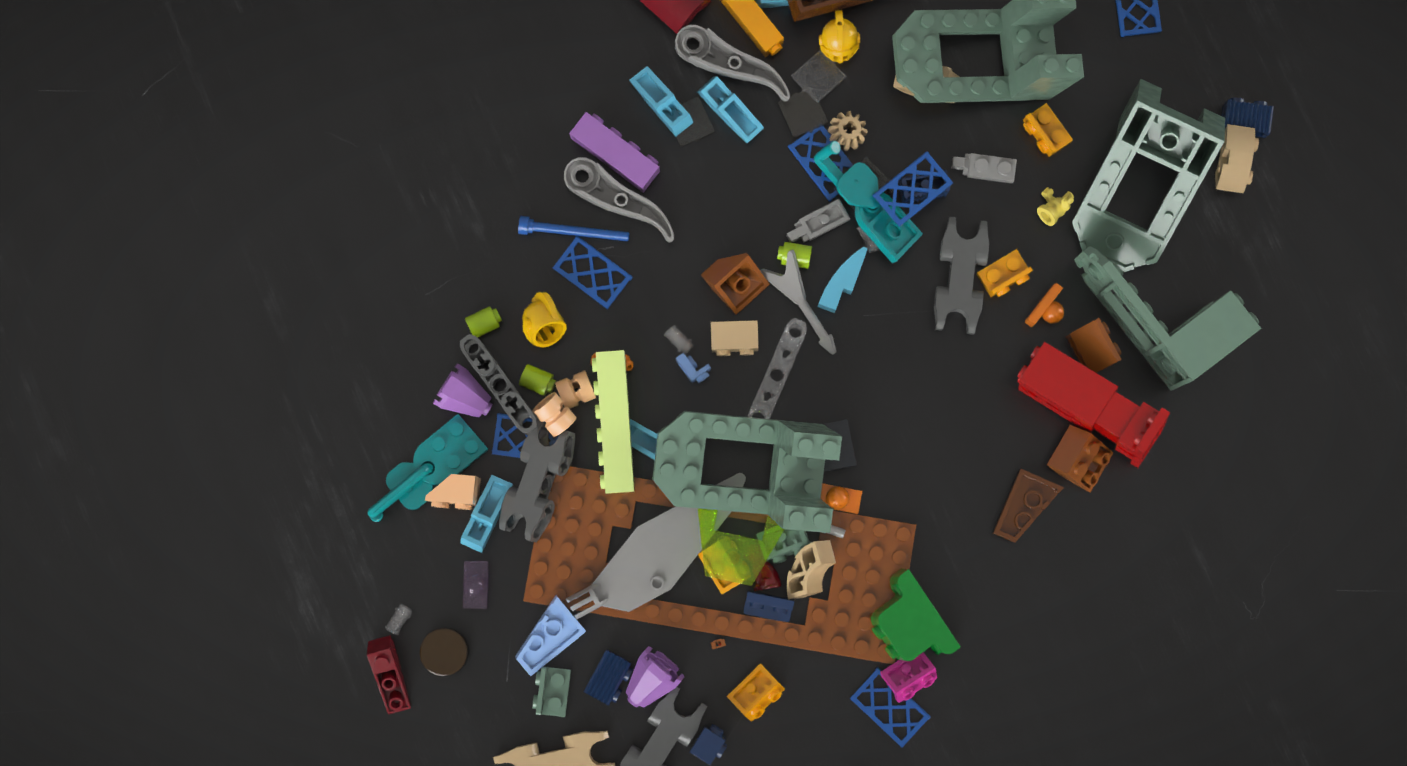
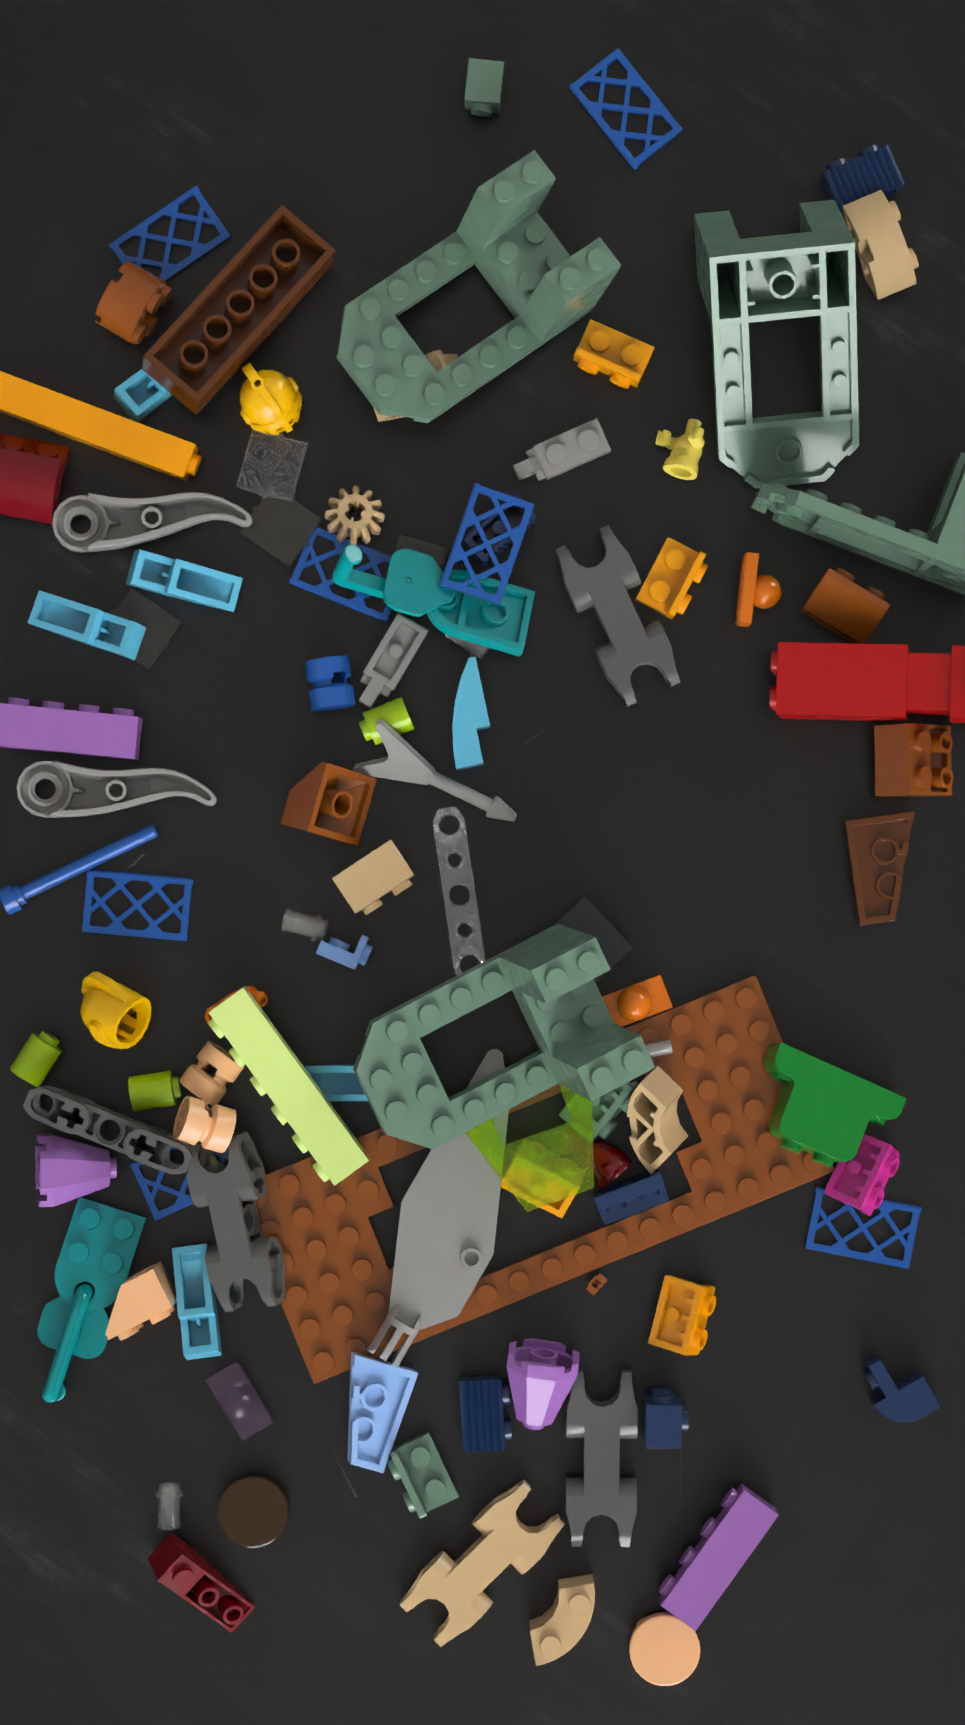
camera: 30 degrees left, 5 degrees up
(777, 213) = (330, 683): none -> blue wheel

